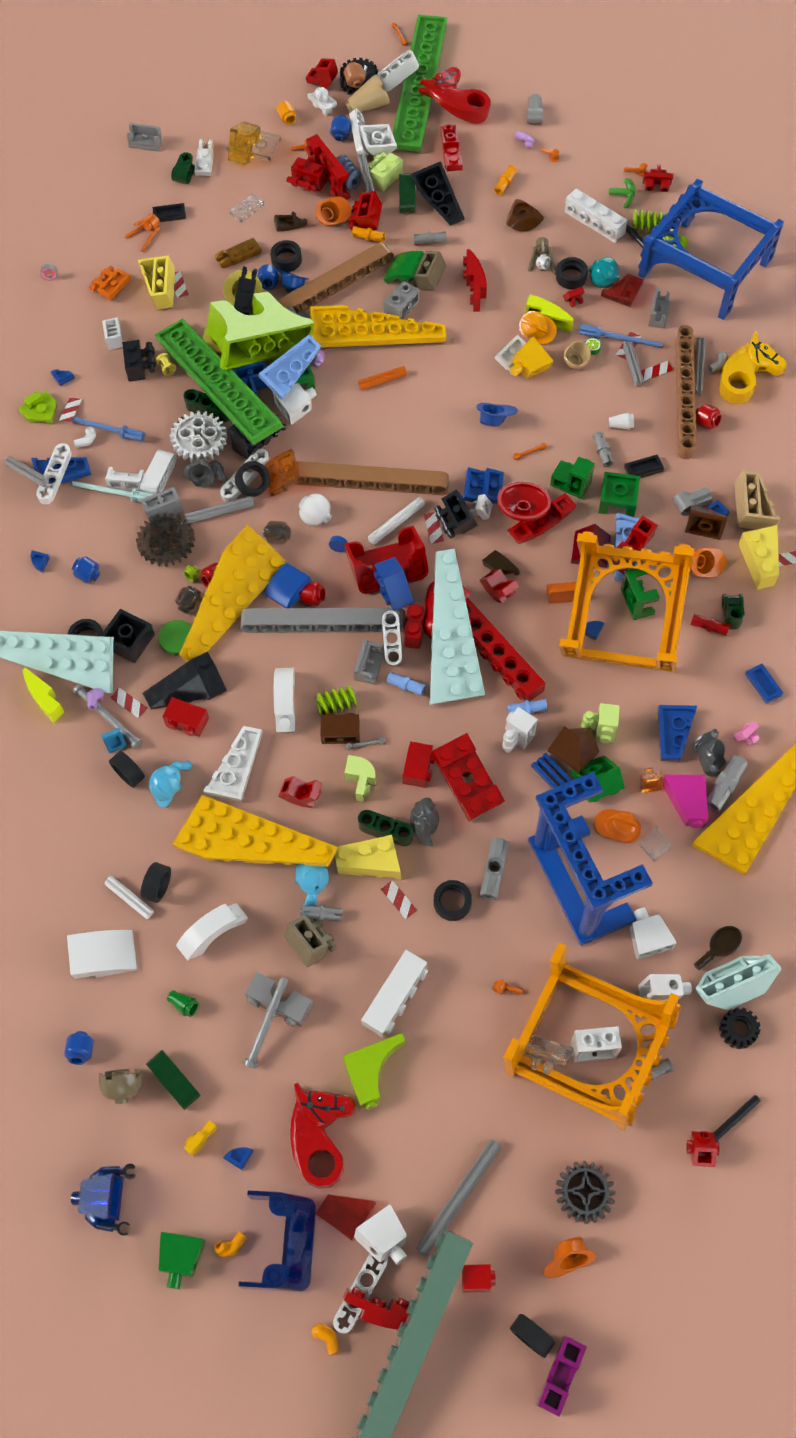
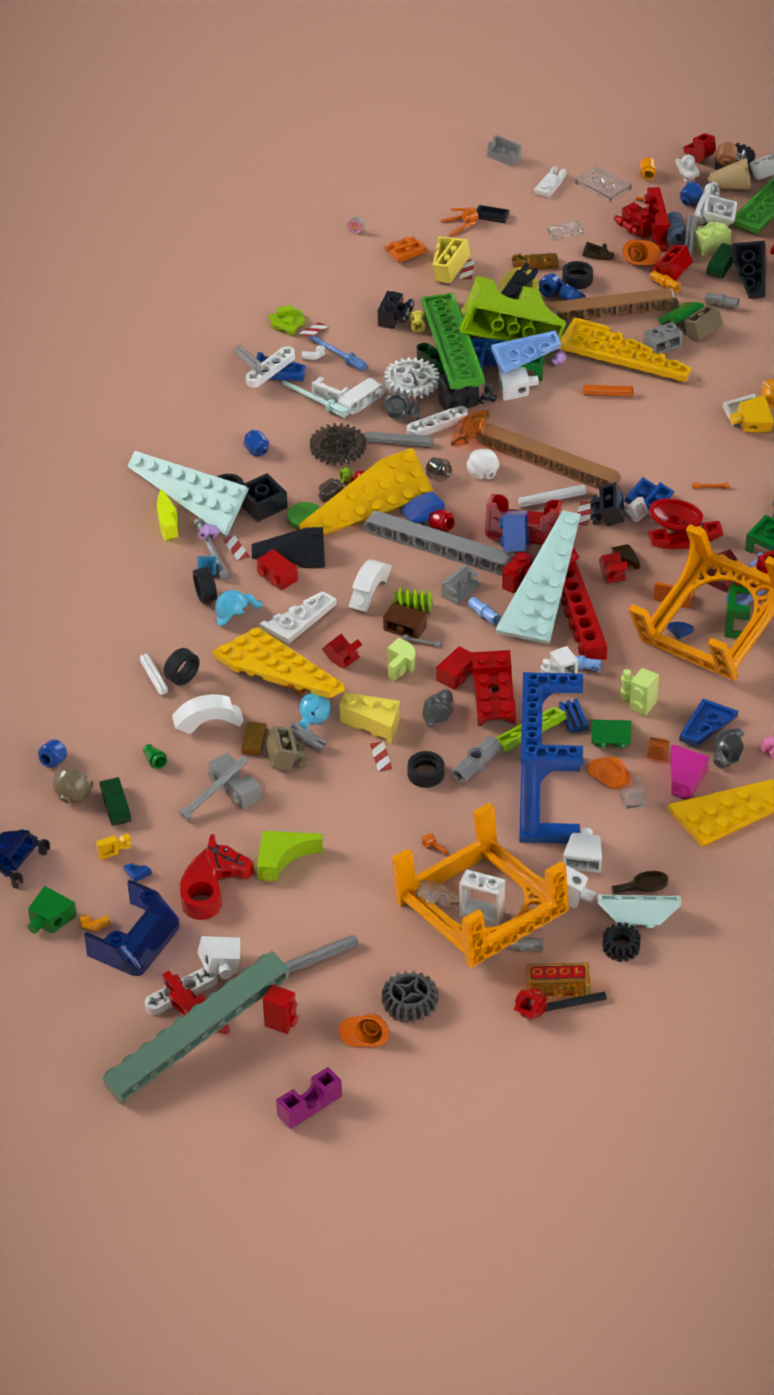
camera: 25 degrees right, 20 degrees down
(39, 560) = (221, 426): blue tile -> none
(62, 376) = (321, 305): blue tile -> none
(101, 953) = (108, 700): white slope -> none
(113, 334) = (384, 284): white slope -> none
(161, 503) = (351, 415): light grey hinge -> none
(183, 168) = (524, 184): dark green piece -> none
(241, 142) = (588, 176): clear yellow brick -> none
(261, 469) = (444, 412): black tyre -> none
(268, 934) = (253, 738): none -> pearl gold tile
(328, 1335) = (136, 1006): light orange arm -> none
(337, 543) = (486, 492): blue tile -> none
(345, 1213) = (191, 933): clear red wing -> none
(380, 820) = (409, 704): dark green beam -> none
(389, 629) = (490, 562): white beam -> none
(394, 994) = (334, 808): white brick -> none
(475, 278) = (743, 344): red slope -> none
(495, 414) = (691, 446): blue piece -> none
(523, 808) = (512, 738): none -> lime plate
(532, 1335) = (301, 1062): black tyre -> none
(573, 478) = (736, 512): green brick -> none
(575, 747) = (605, 702): reddish brown slope -> none
(709, 1104) = (559, 978): none -> clear yellow brick
(726, 783) = (727, 774): light grey piece -> none

